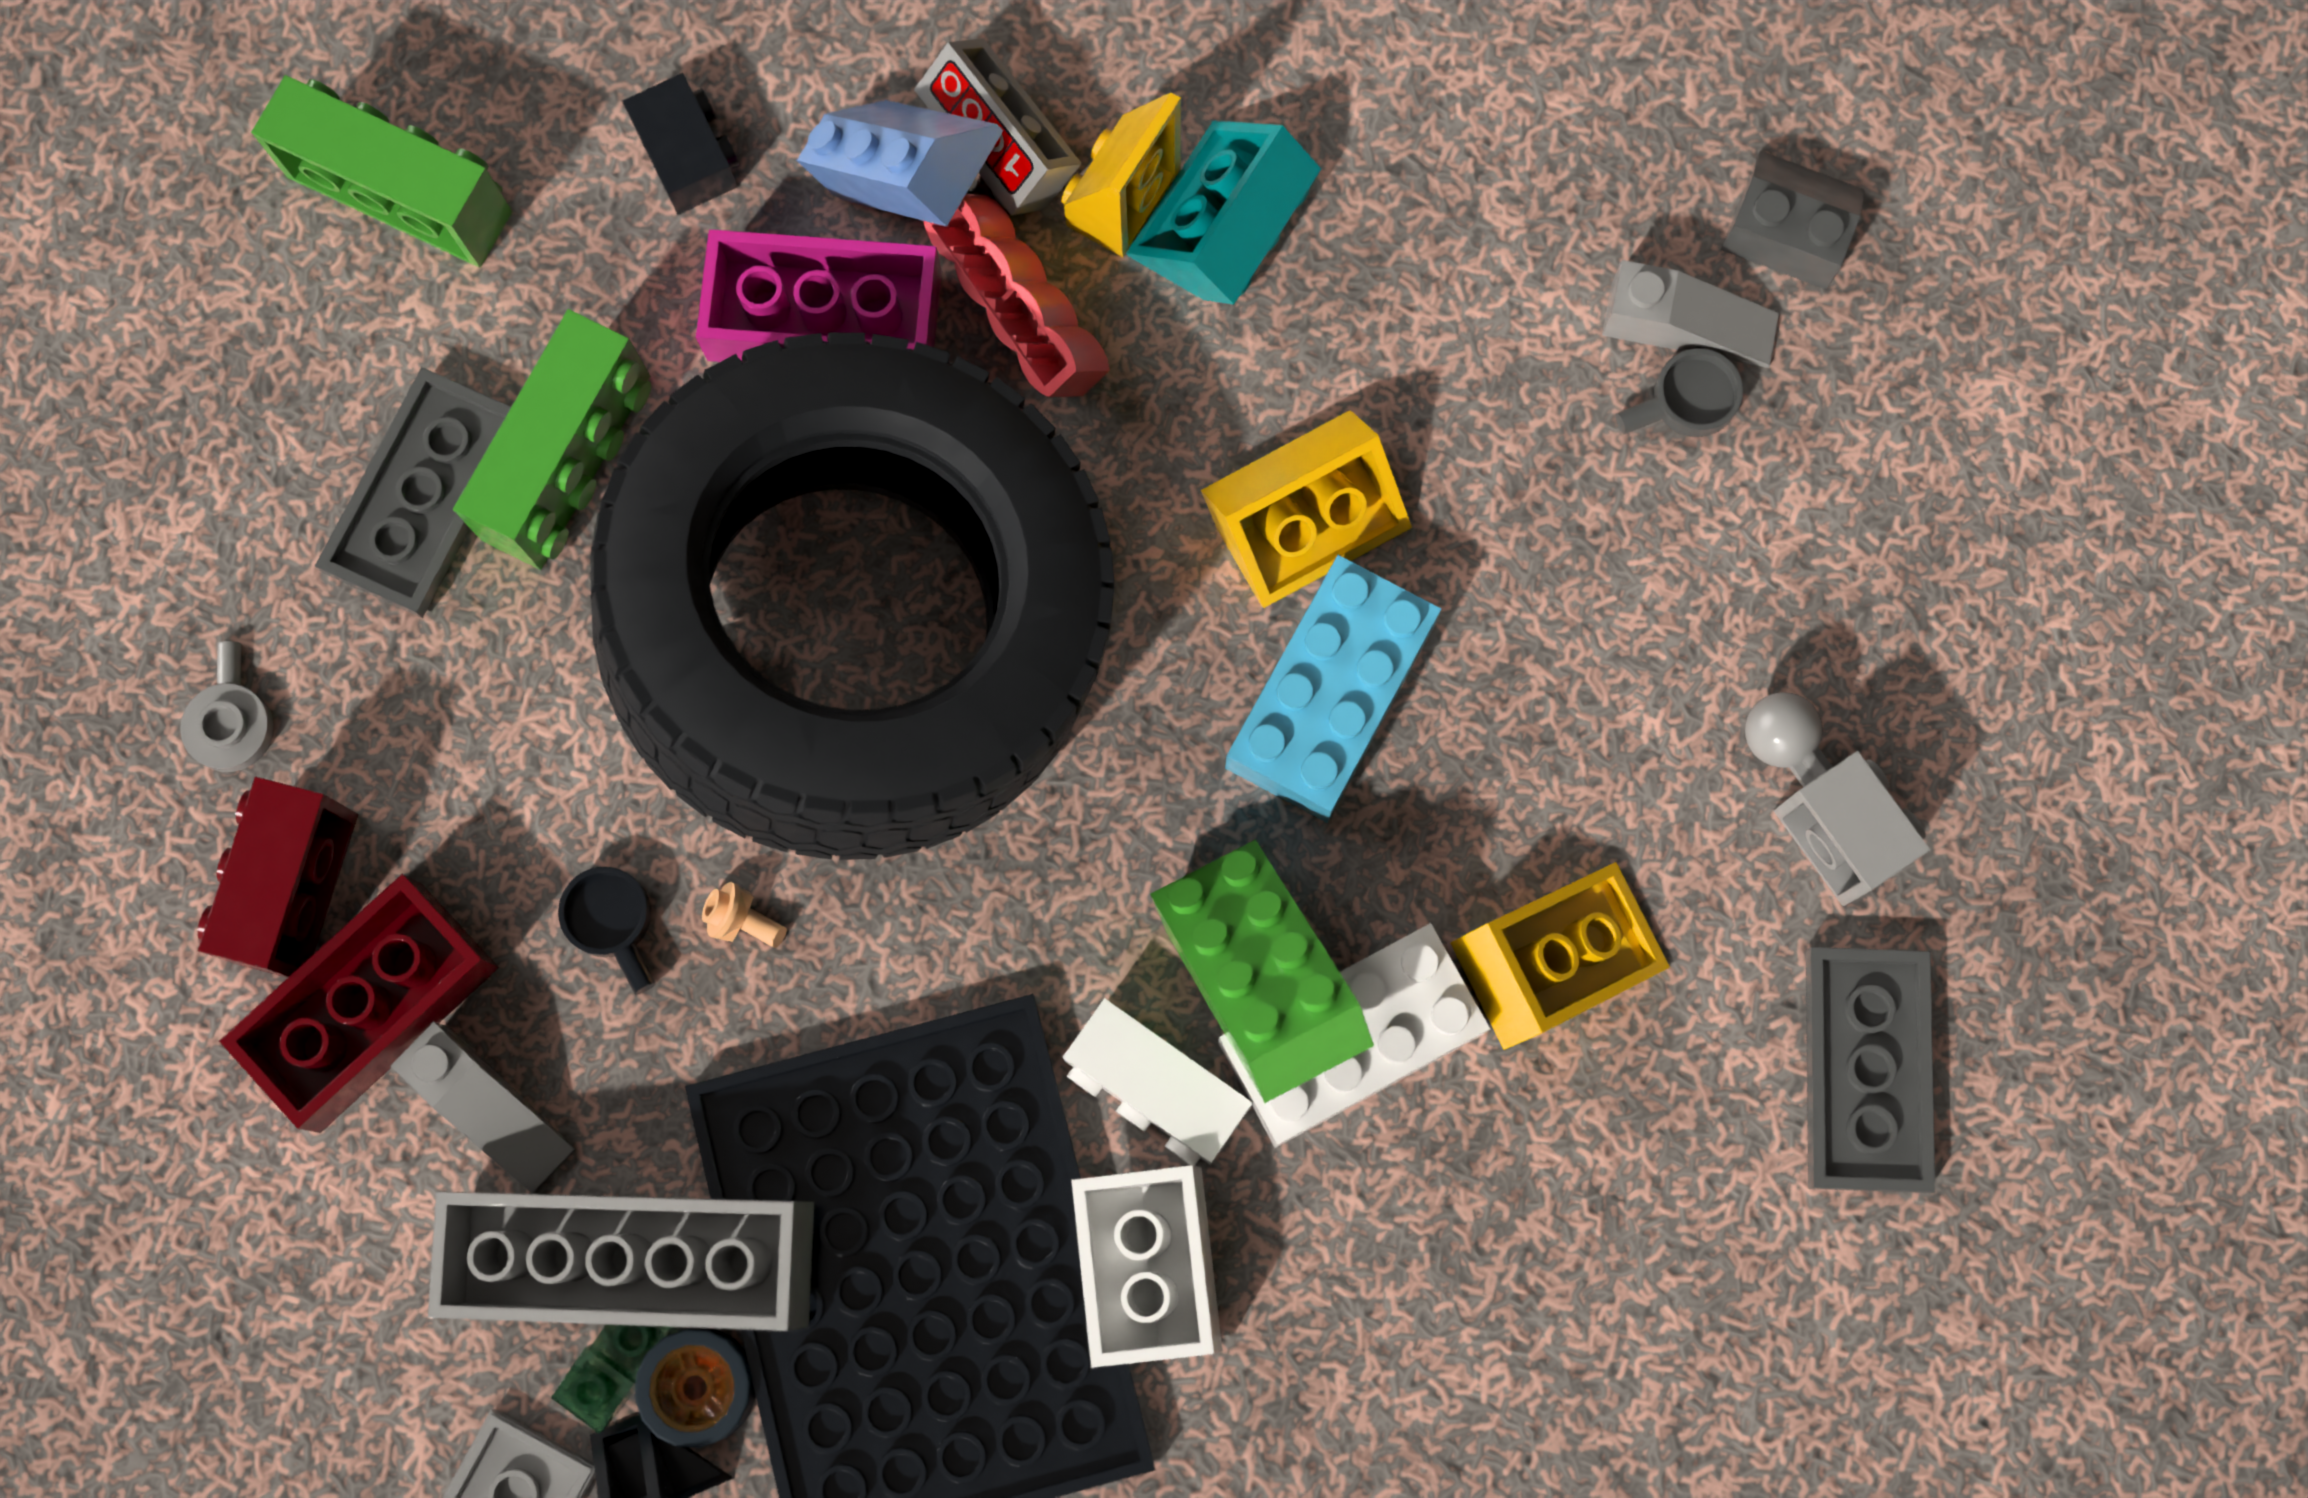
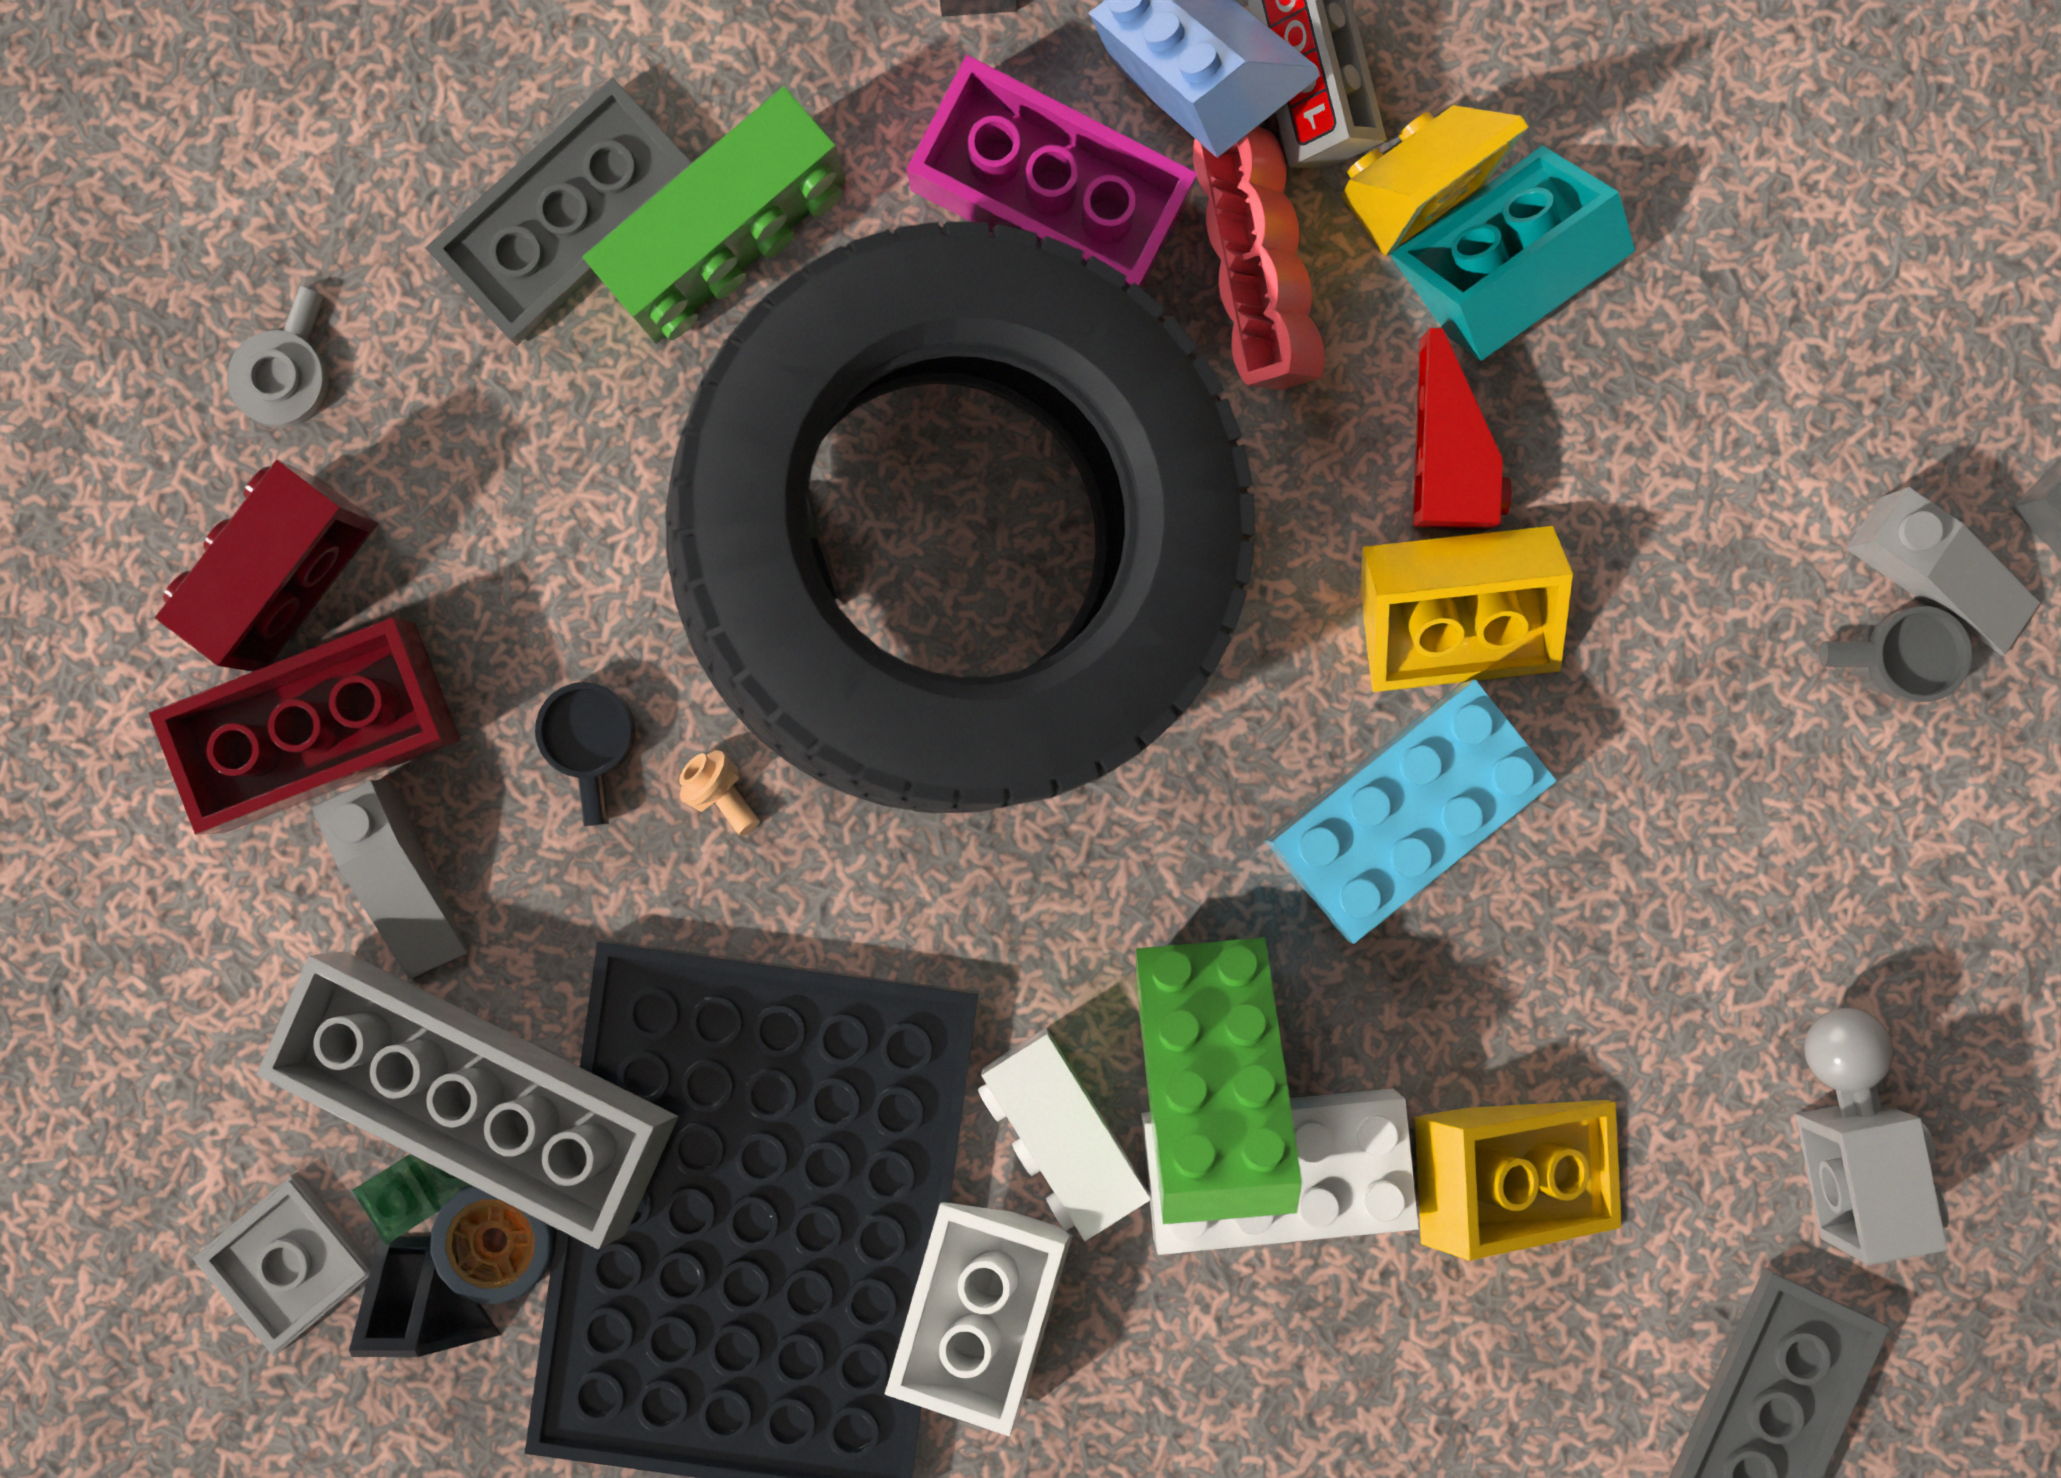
camera: 20 degrees right, 10 degrees up
(1245, 384) = (1455, 454): none -> red slope

